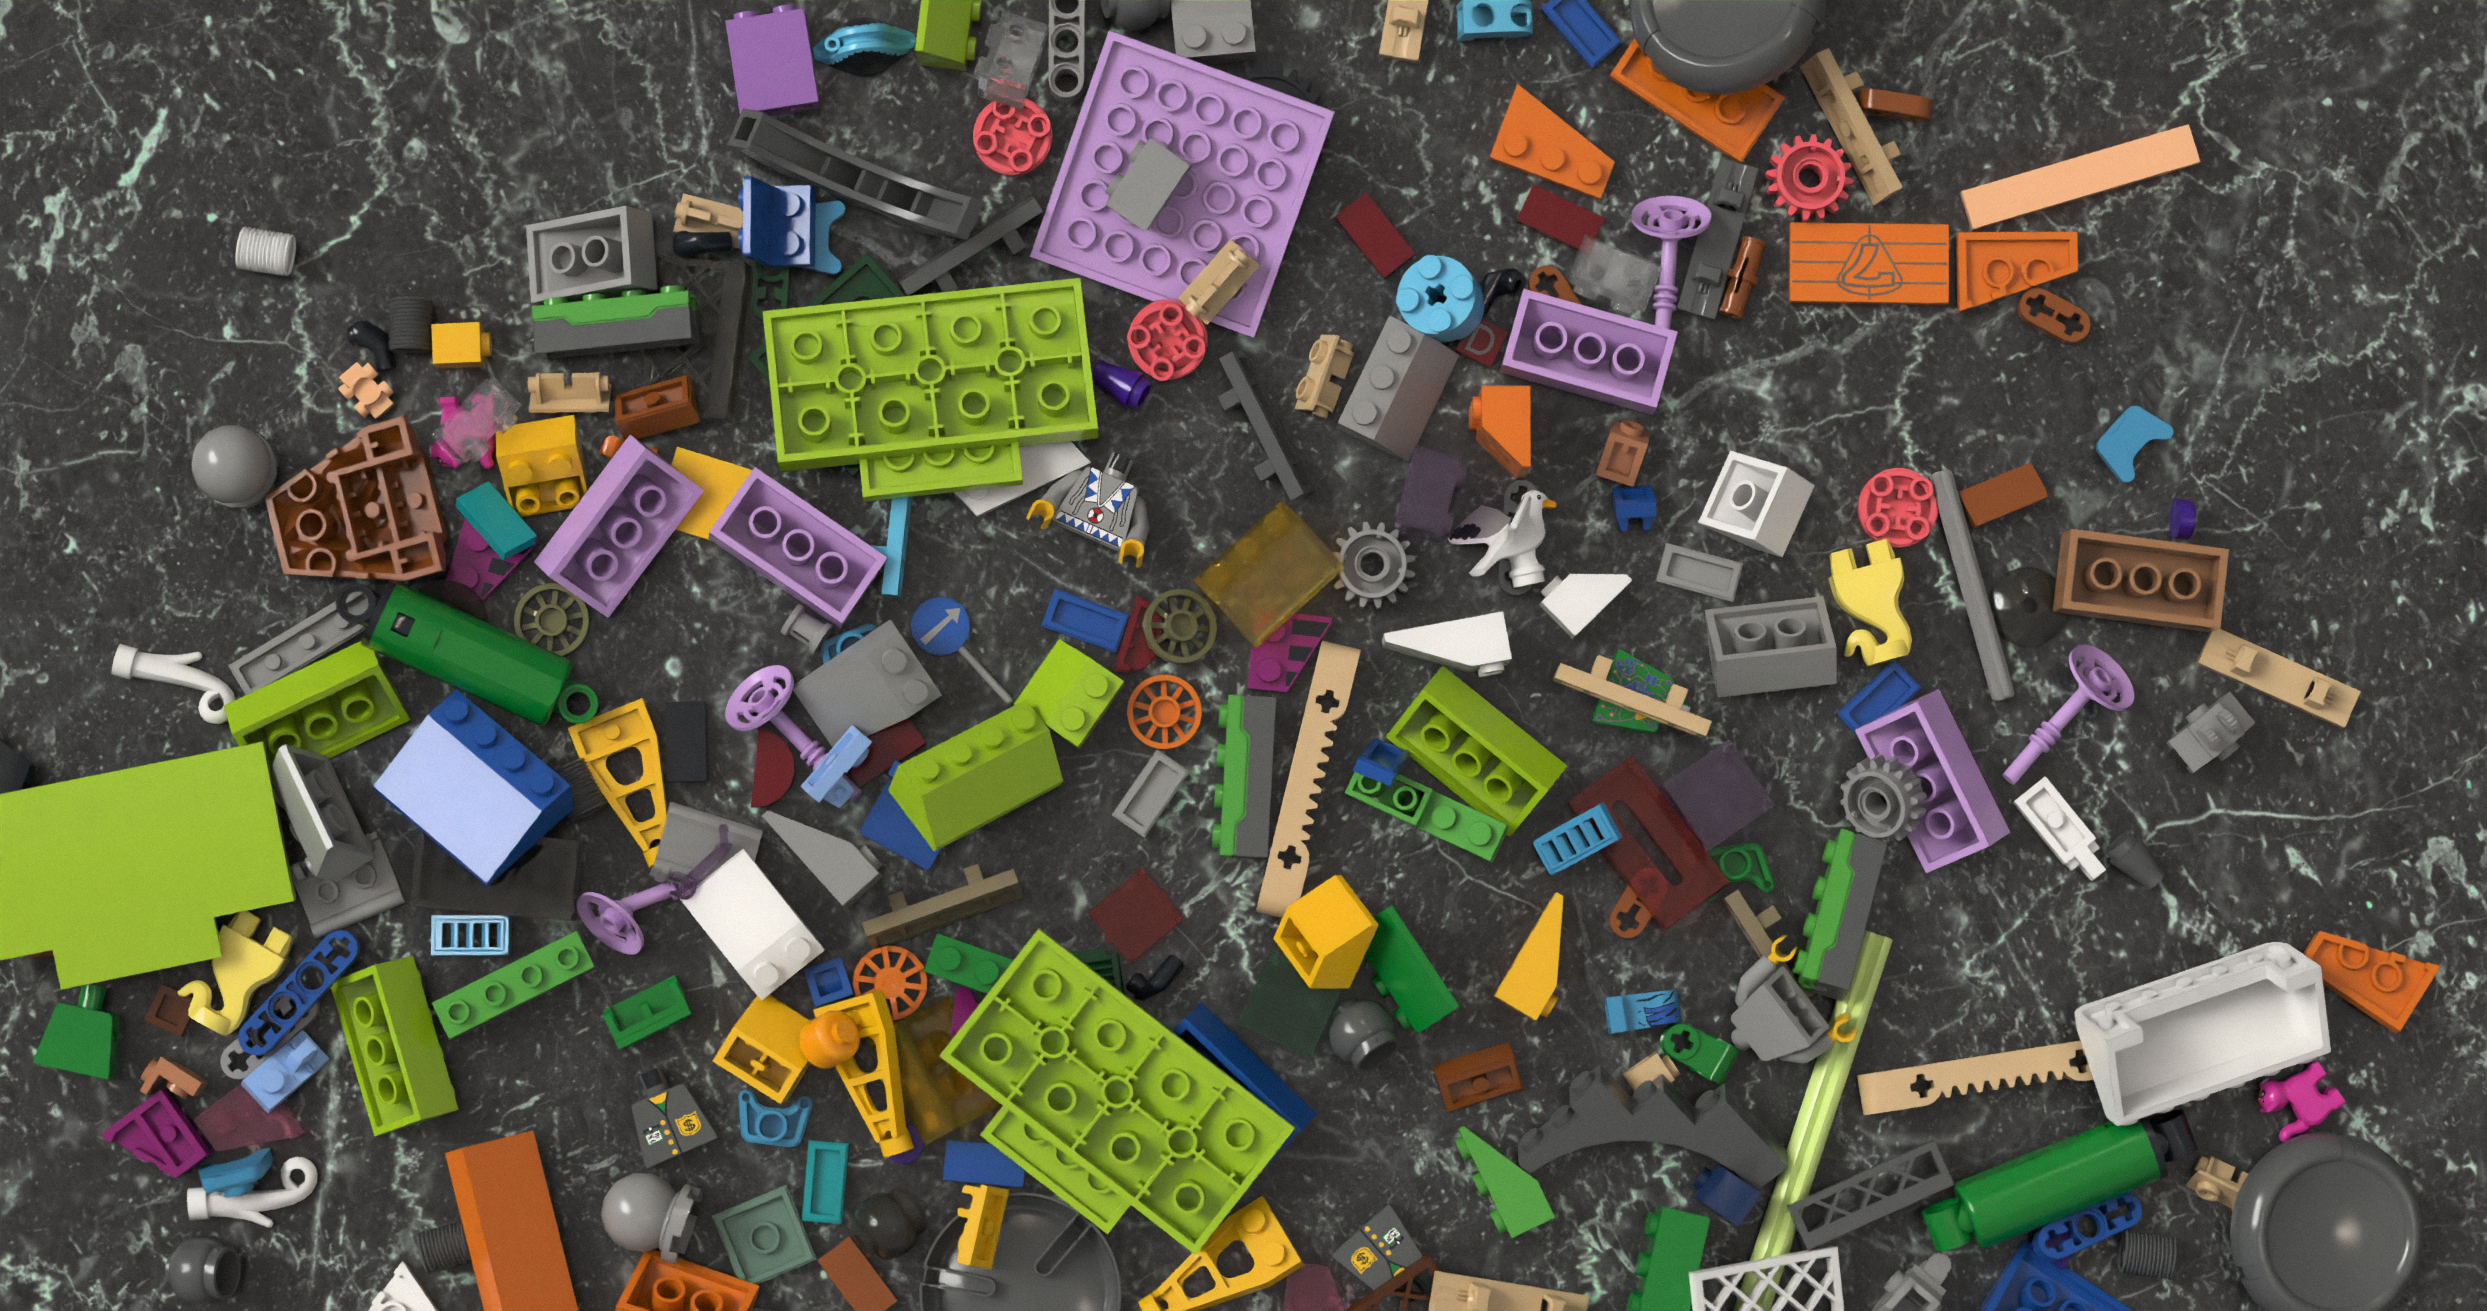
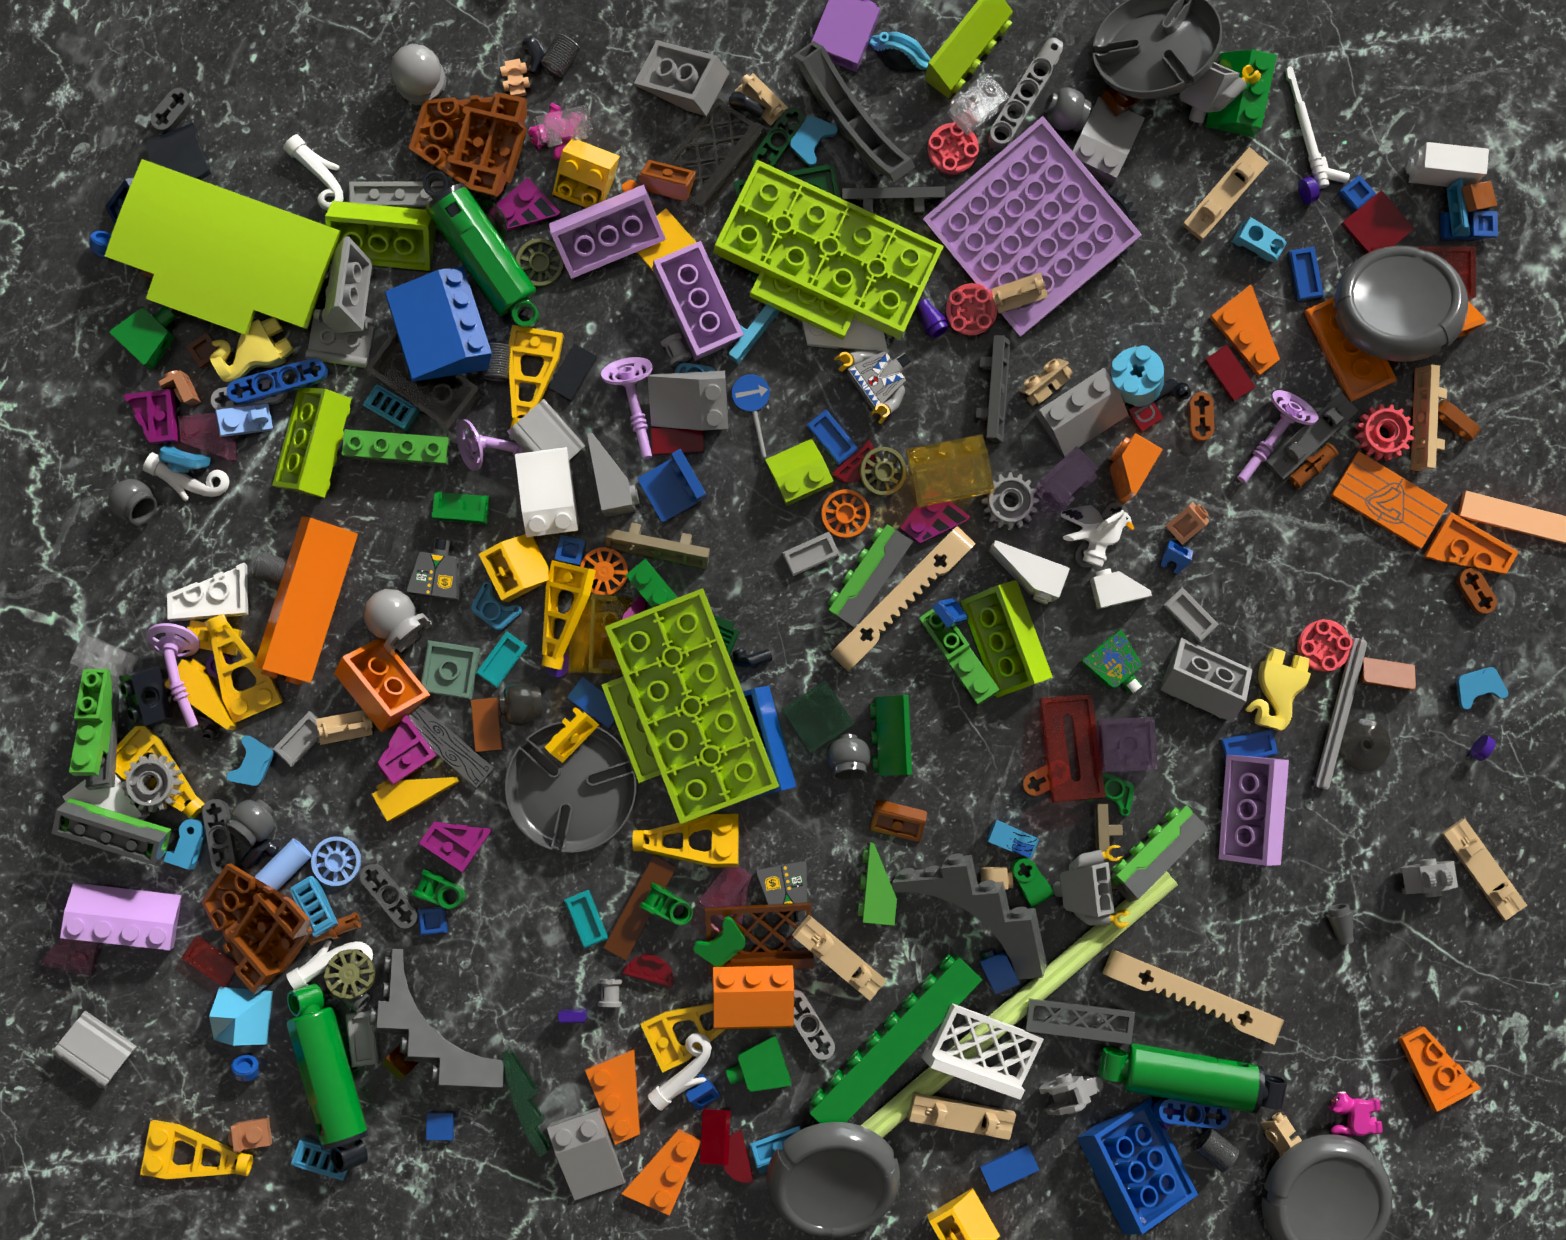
camera: 35 degrees right, 0 degrees up
(460, 345) = (580, 82): yellow brick -> none
(496, 521) = (541, 188): teal tile -> none
(586, 394) = (633, 149): tan hinge -> none
(615, 324) = (672, 120): piece -> none
(688, 882) = (526, 446): clear purple piece -> none
(773, 769) = (611, 415): dark red tile -> none
(777, 224) = (793, 115): blue bracket -> none
(827, 779) = (636, 437): light blue hinge -> none
(829, 1039) = (549, 580): light orange head -> none
(977, 775) = (720, 484): lime slope -> none
(1135, 915) = (762, 616): clear red piece -> none
(1148, 182) = (1013, 213): light grey brick -> none
(1327, 934) = (861, 690): yellow slope -> none
(1375, 235) = (1120, 321): dark red tile -> none
(1535, 969) = (965, 781): yellow slope -> none
(1558, 853) = (1018, 721): dark azure slope -> none
(1588, 352) = (1203, 454): lavender slope -> none
(1613, 274) = (1243, 420): clear brick -> none
(1668, 713) = (1111, 661): tan hinge -> none
(1756, 503) = (1247, 595): white slope -> none
(1896, 785) = (1233, 800): light grey gear -> none
(2060, 828) = (1310, 880): white hinge -> none
(2090, 687) = (1376, 810): lavender dish -> none
(2140, 580) = (1440, 768): medium nougat brick -> none
(2204, 1030) = (1326, 1044): white windscreen -> none

